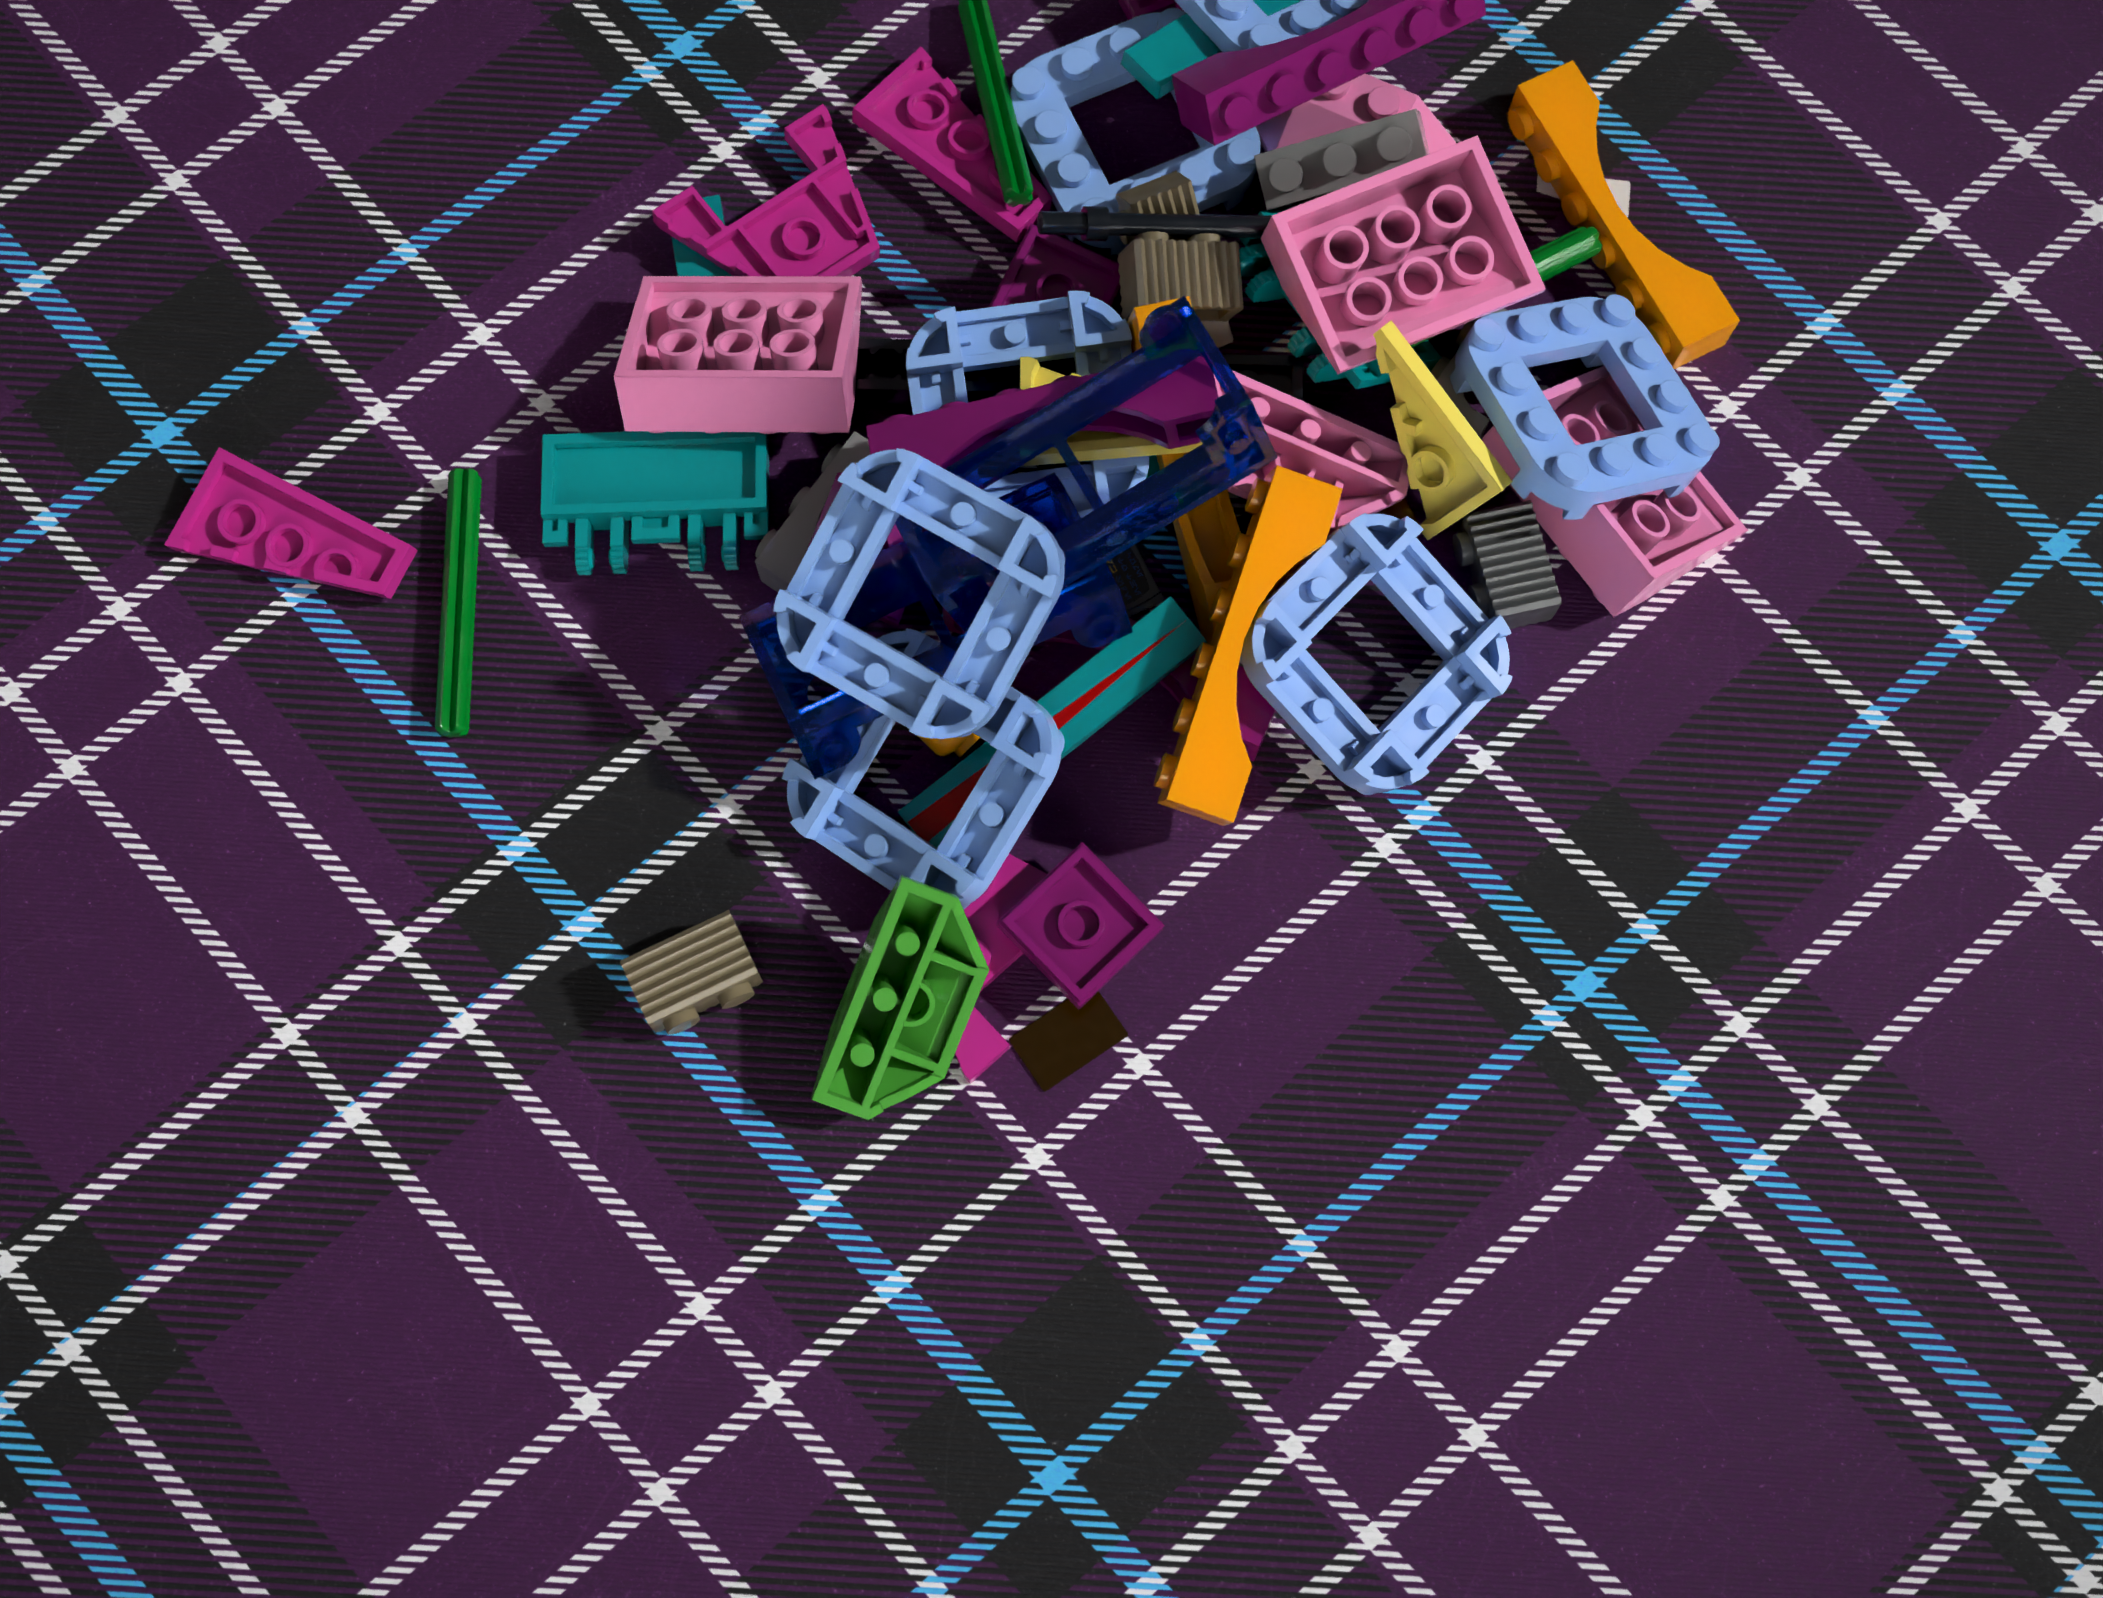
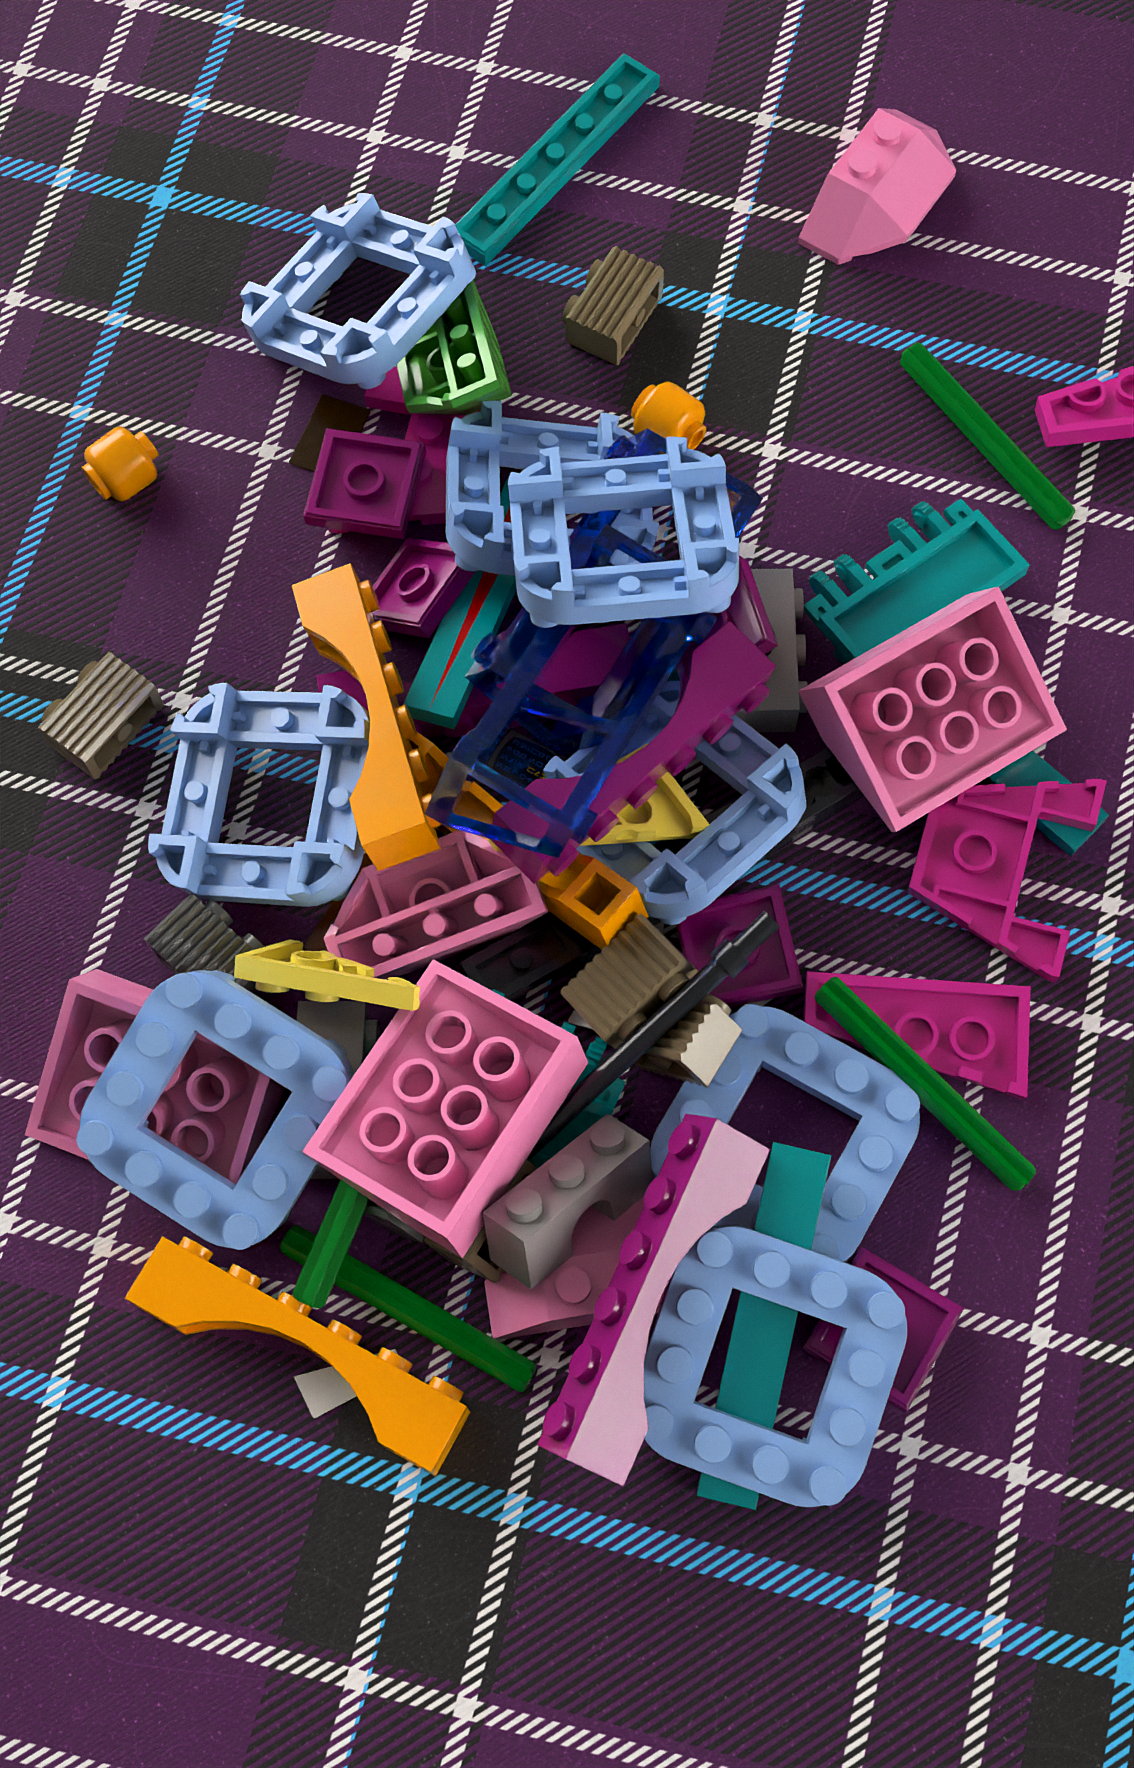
camera: 150 degrees right, 5 degrees down
(314, 929) = (878, 188): none -> bright pink wedge
(604, 1215) = (555, 158): none -> teal tile
(736, 810) = (669, 413): none -> light orange head
(971, 1230) = (358, 350): none -> light blue plate
(1105, 784) = (419, 587): none -> magenta plate
(1303, 1129) = (120, 464): none -> light orange head
(1463, 124) = (420, 1315): none -> green axle
(1478, 861) = (100, 714): none -> dark tan brick

